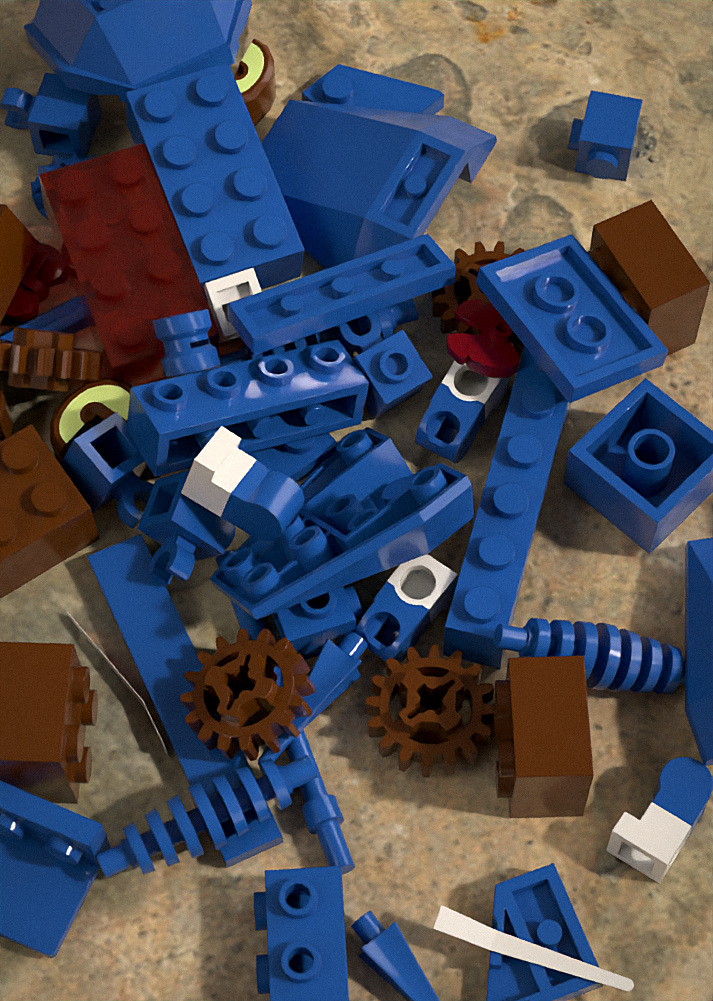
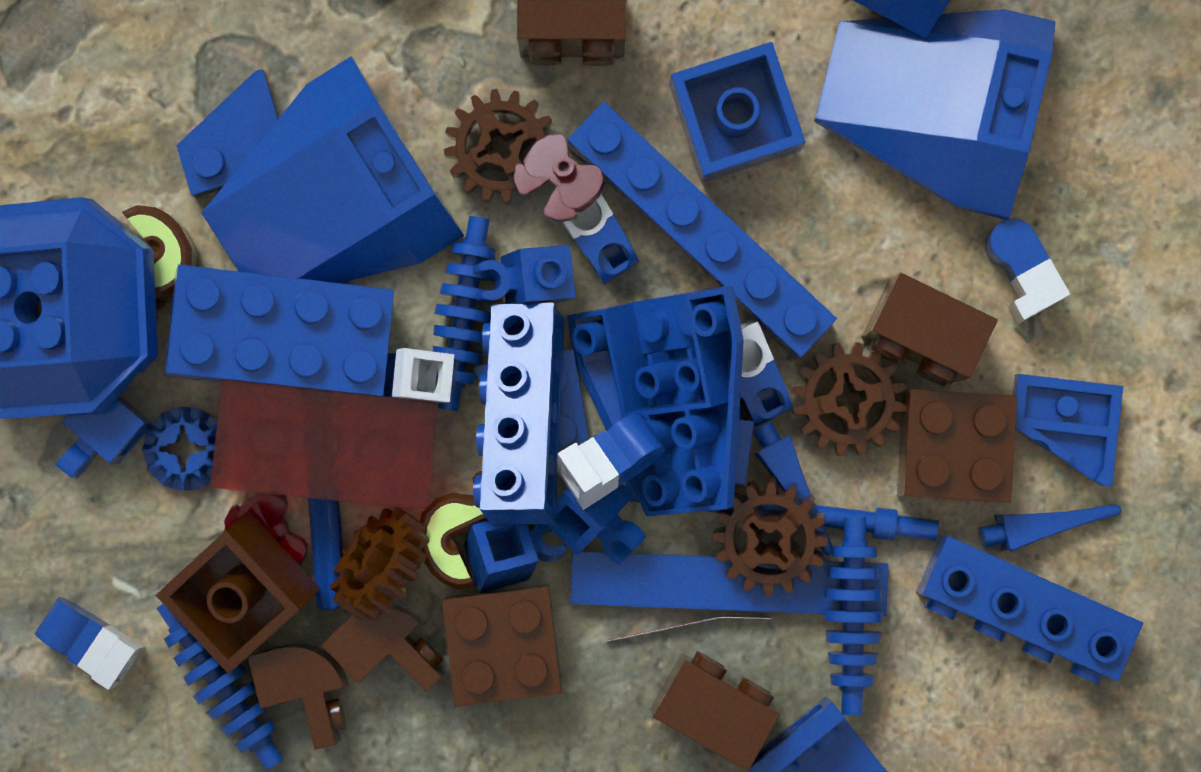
camera: 65 degrees left, 25 degrees up
(186, 343) = (441, 438): blue wheel -> none
(341, 293) = (465, 284): blue plate -> none
(441, 836) = (957, 445): none -> reddish brown brick
(493, 940) = (1045, 458): white sticker -> none
(571, 317) = (589, 106): blue plate -> none
(611, 656) = (877, 250): blue piece -> none

